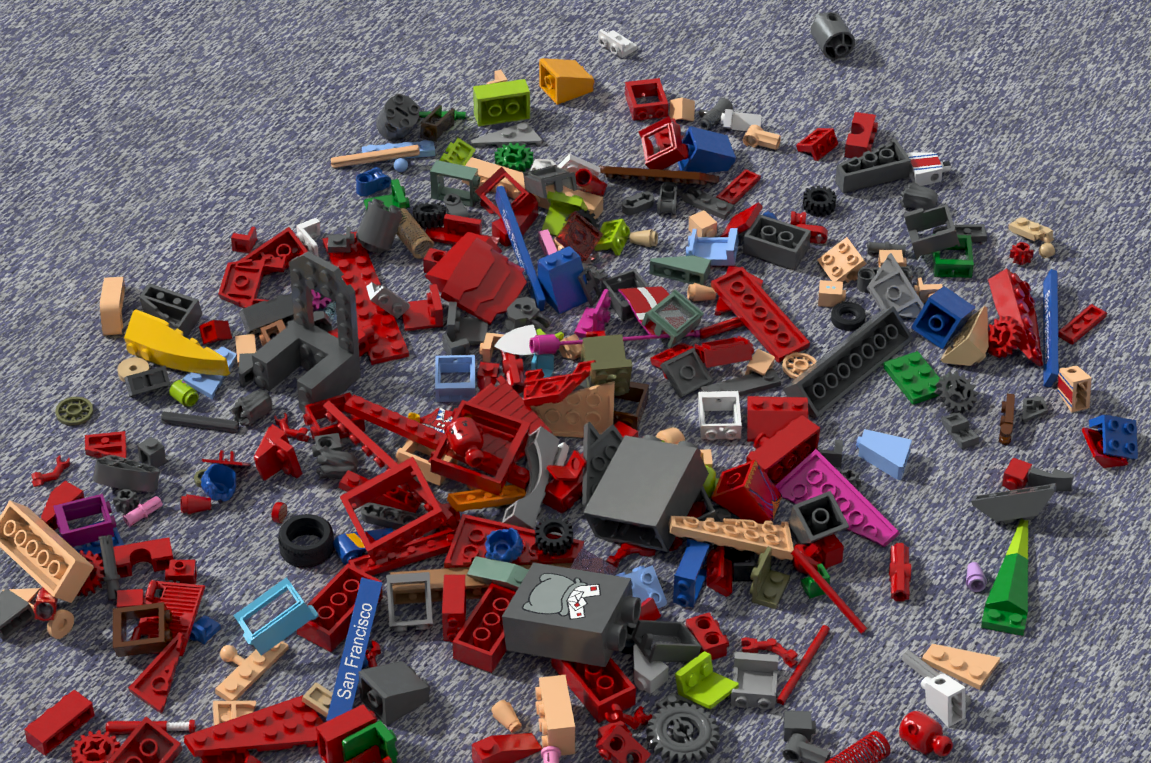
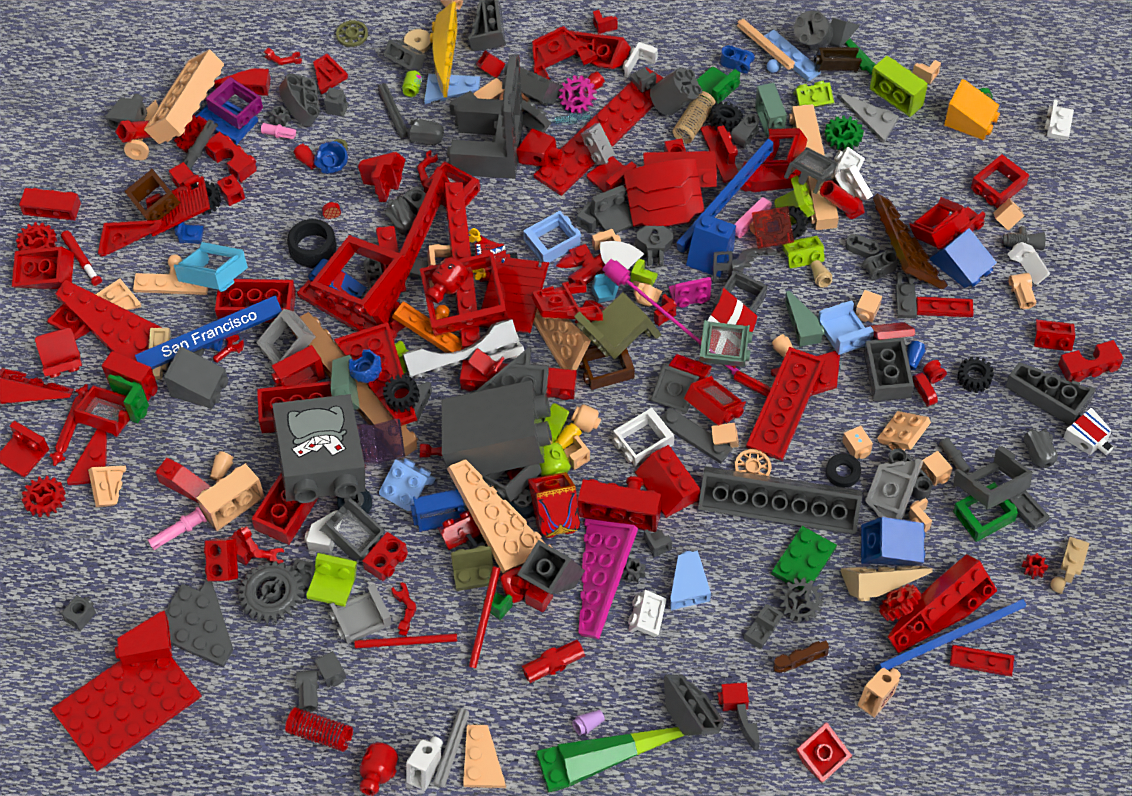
camera: 60 degrees right, 15 degrees up
(221, 459) = (353, 147): red piece -> none
(649, 610) = (385, 502): red tile -> none
(895, 494) = (647, 613): none -> white bracket
(1033, 408) = (835, 671): dark grey piece -> none
(1118, 435) = (839, 756): blue bracket -> none

